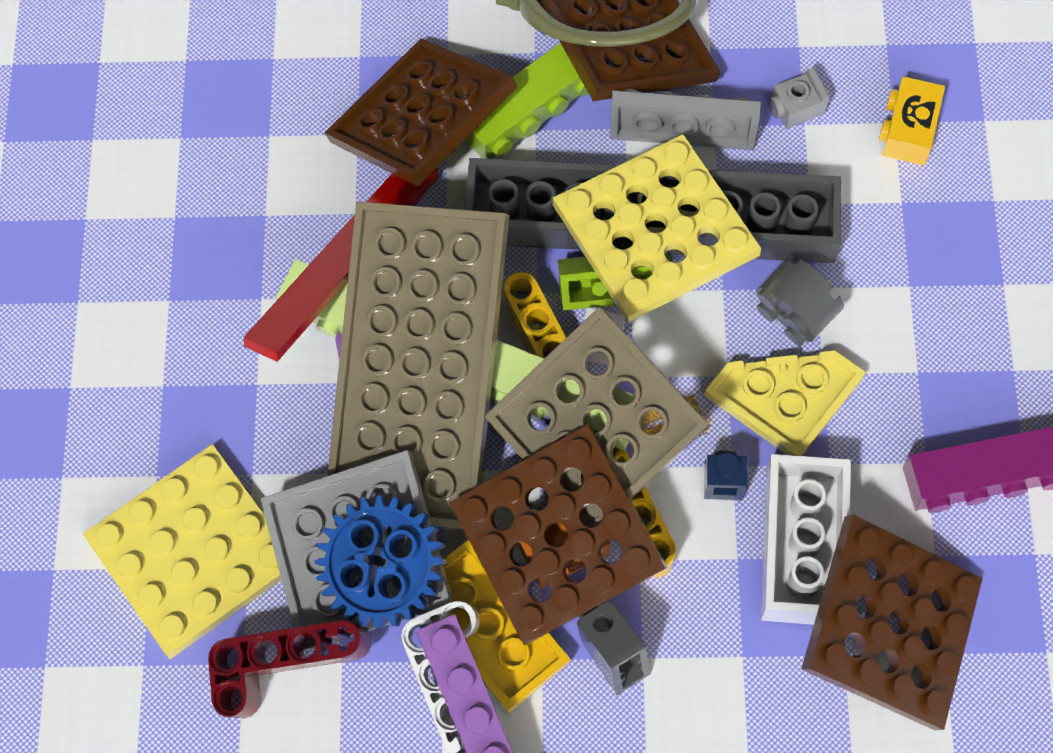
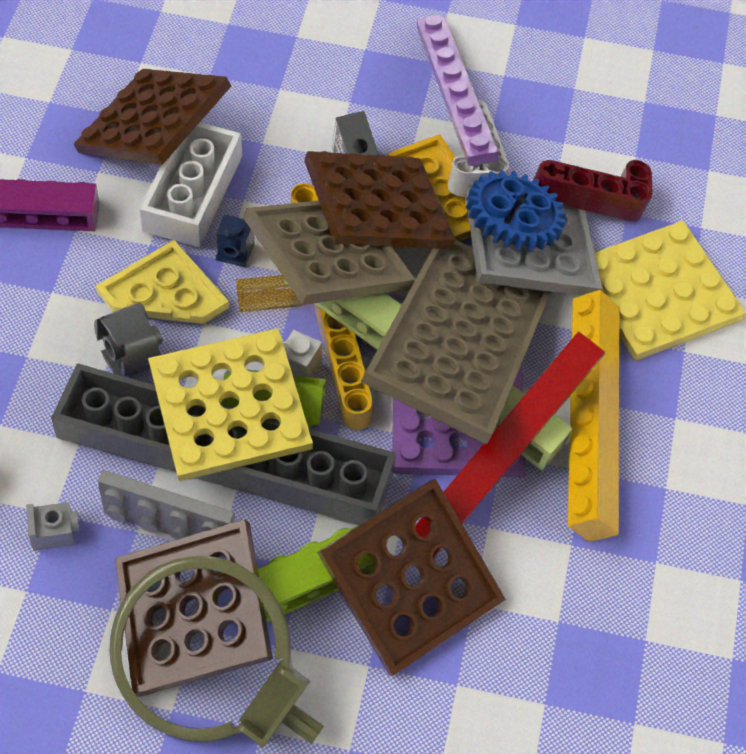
camera: 175 degrees left, 10 degrees down
(255, 381) = (595, 424): none -> yellow brick

